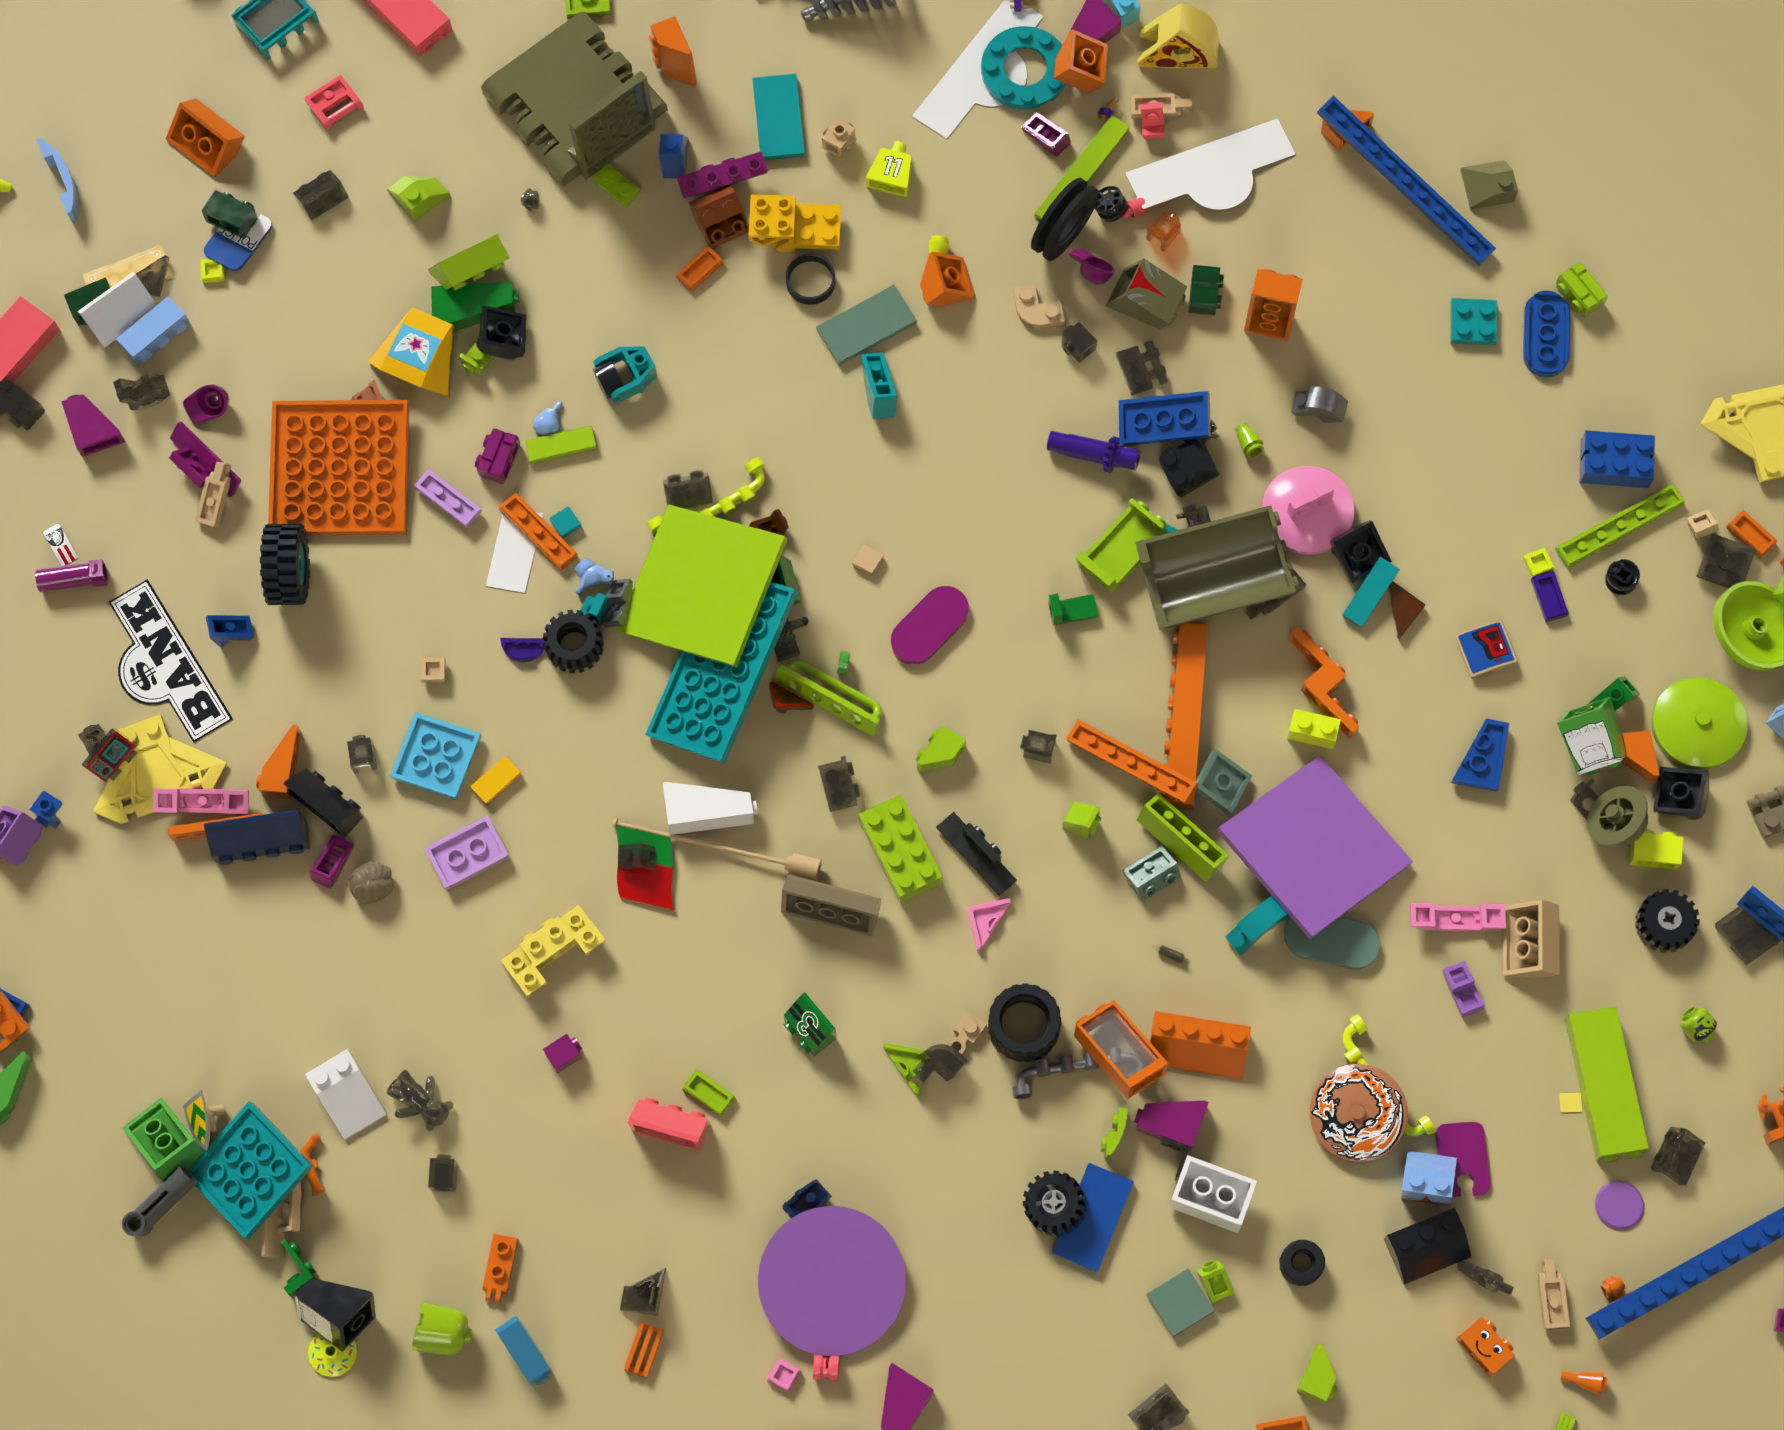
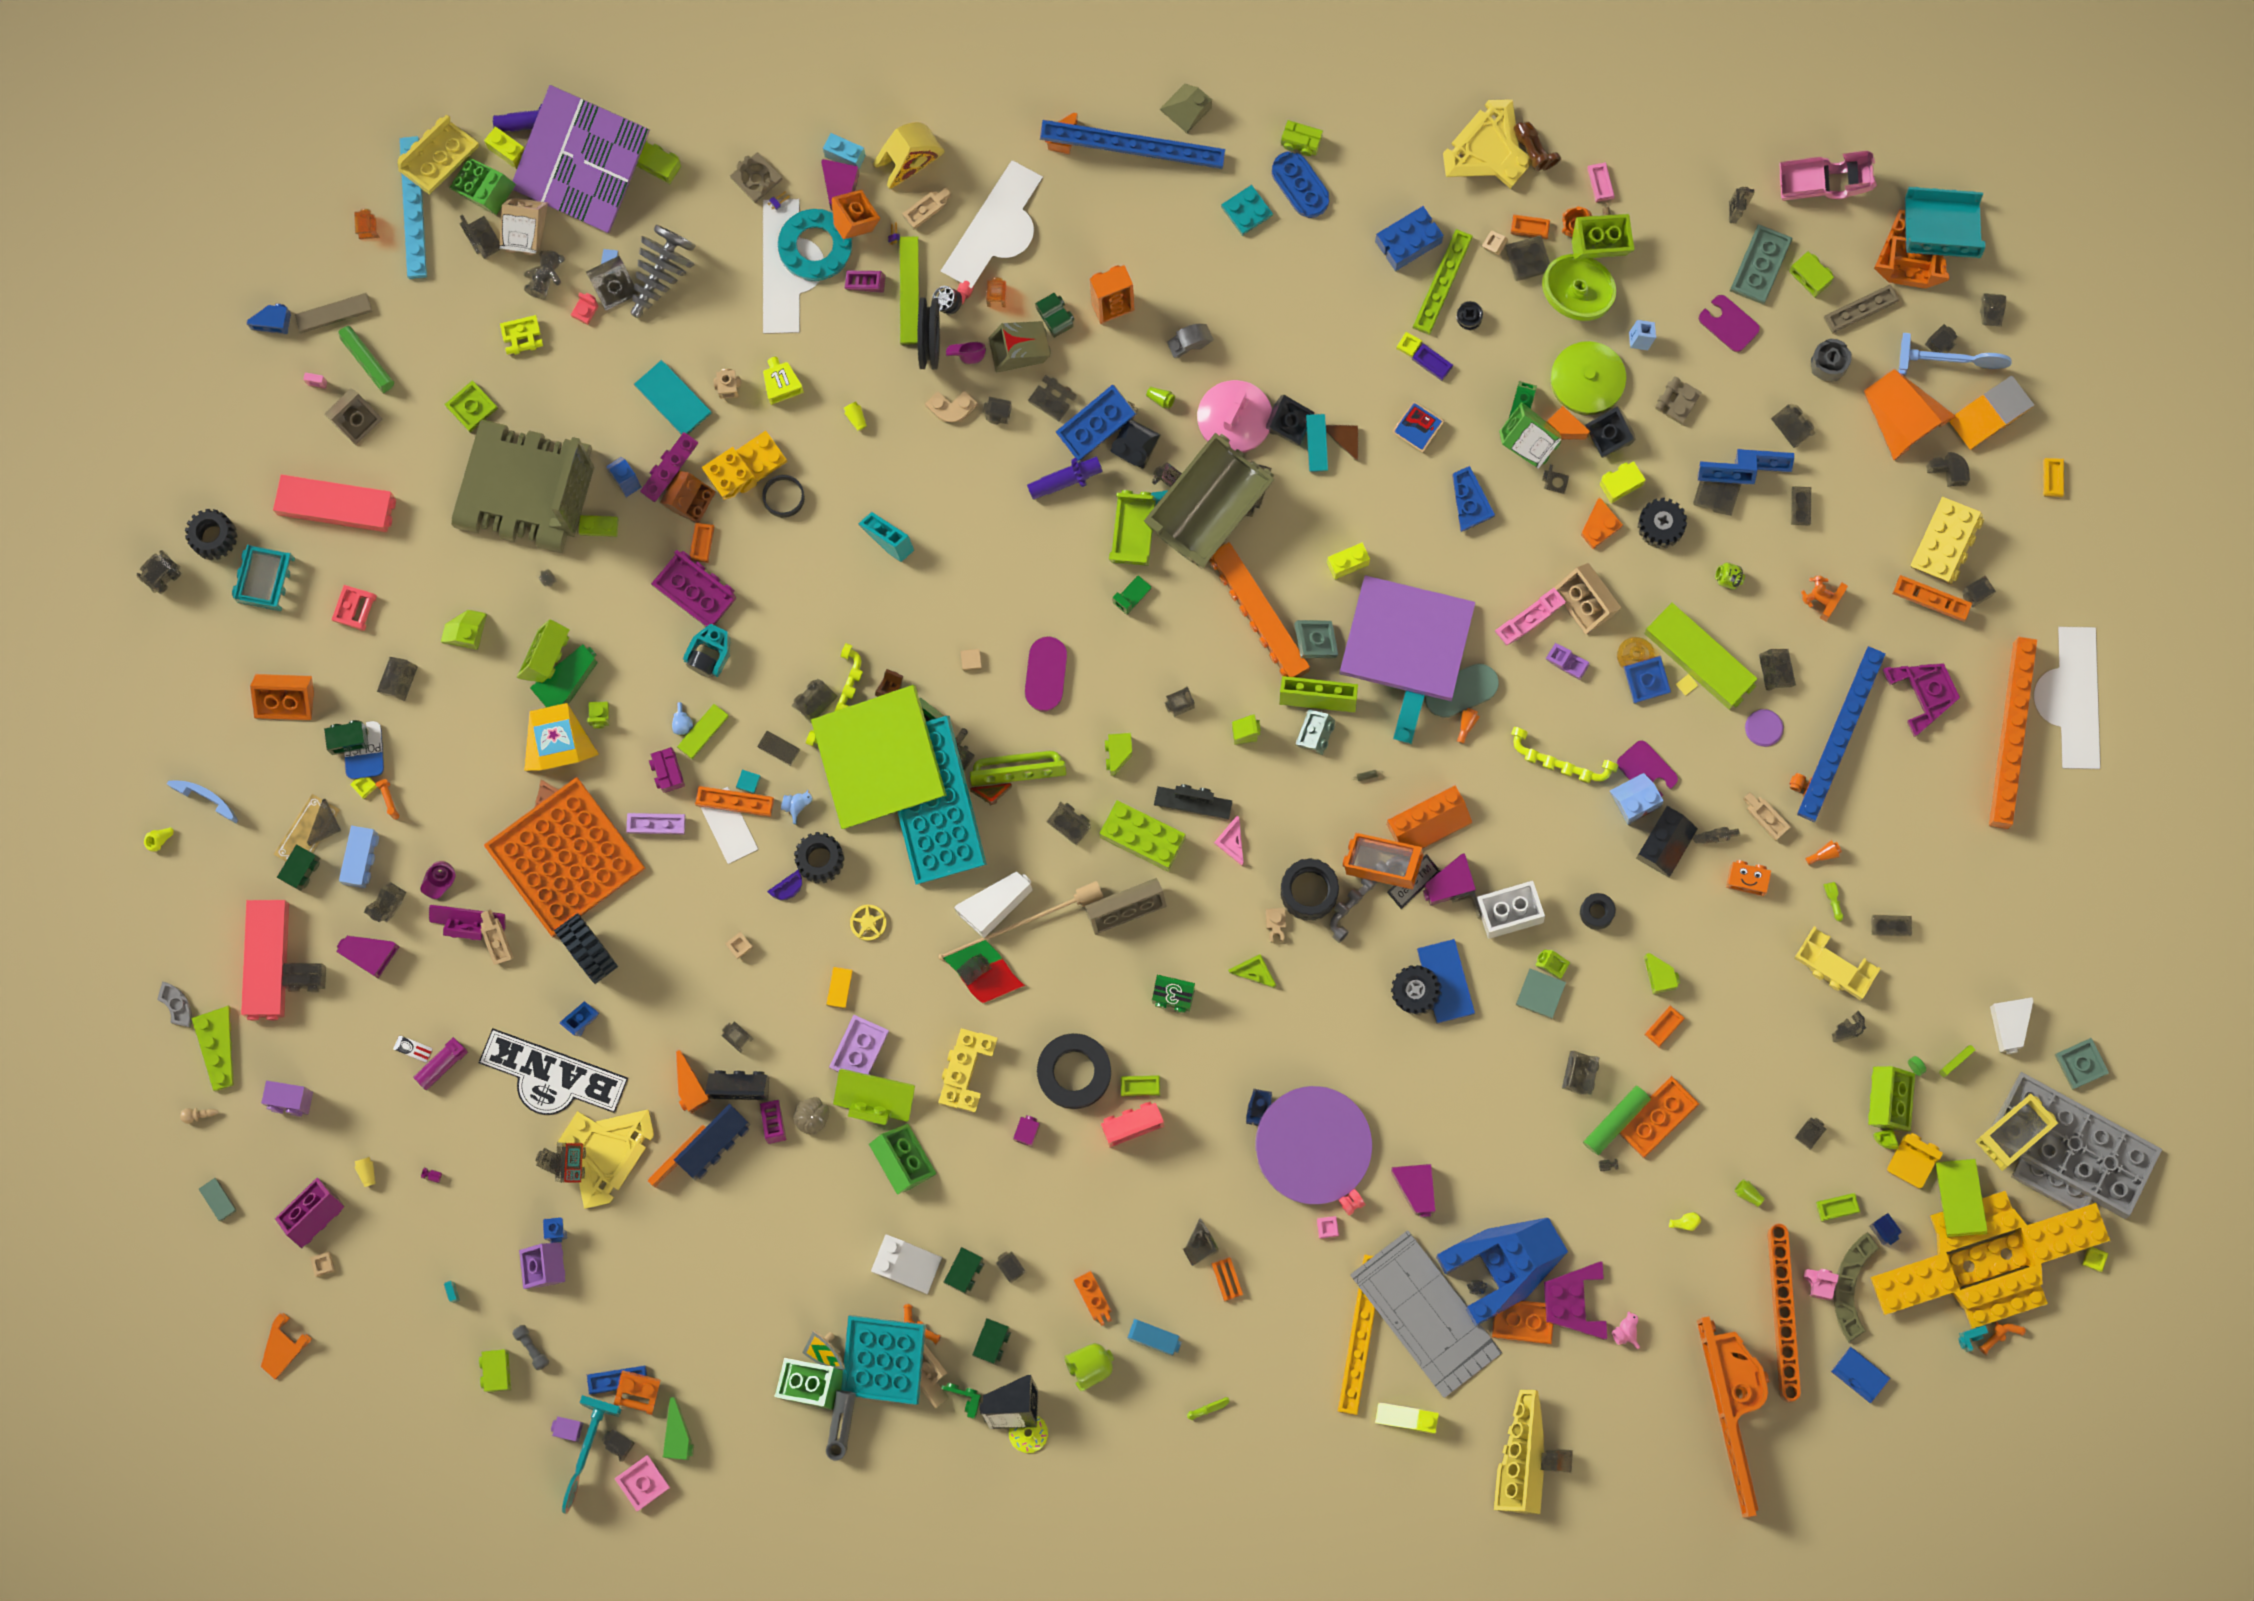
camera: 35 degrees left, 5 degrees up
(117, 309) = (323, 859): white tile -> none
(201, 801) = (654, 1146): bright pink slope -> none
(217, 309) = (391, 810): none -> orange piece
(366, 1233) = (991, 1341): none -> dark green brick
(395, 1143) = (964, 1270): none -> dark green brick
(419, 1101) = (958, 1232): clear smoke piece -> none
(423, 989) = (902, 1158): none -> bright green slope
(435, 756) = (787, 1001): medium azure plate -> none
(442, 908) = (873, 1097): none -> lime bracket
(502, 333) = (604, 684): black slope -> none
(572, 738) = (868, 922): none -> light yellow wheel
(595, 606) = (814, 824): teal bracket -> none
(619, 511) = (778, 748): none -> clear smoke tile
(619, 601) = (827, 807): flat silver slope -> none
(630, 1005) = (1074, 1043): none -> black tyre
(657, 306) = (694, 589): none -> magenta bracket
(672, 51) = (568, 405): orange slope -> none
(843, 662) = (1009, 740): bright green tile -> none
(866, 325) = (845, 500): sand green tile -> none
(942, 1059) = (1274, 952): clear smoke brick -> none
(945, 280) = (876, 432): orange slope -> none
(1111, 1141) = (1421, 923): lime slope -> none
(1132, 762) = (1249, 668): orange plate -> none
(1152, 120) = (931, 221): coral bracket -> none
(1157, 1092) = (1403, 896): none -> clear smoke sticker
(1314, 974) = (1468, 720): none -> orange cone
(1323, 681) = (1331, 524): orange bracket -> none
(1359, 1113) = (1562, 789): dish -> none
(1532, 1066) = (1647, 679): none -> blue tile
(1545, 1028) = (1637, 648): none -> clear yellow piece
(1601, 877) = (1600, 525): none -> orange wing
(1618, 816) = (1583, 477): olive wheel -> none

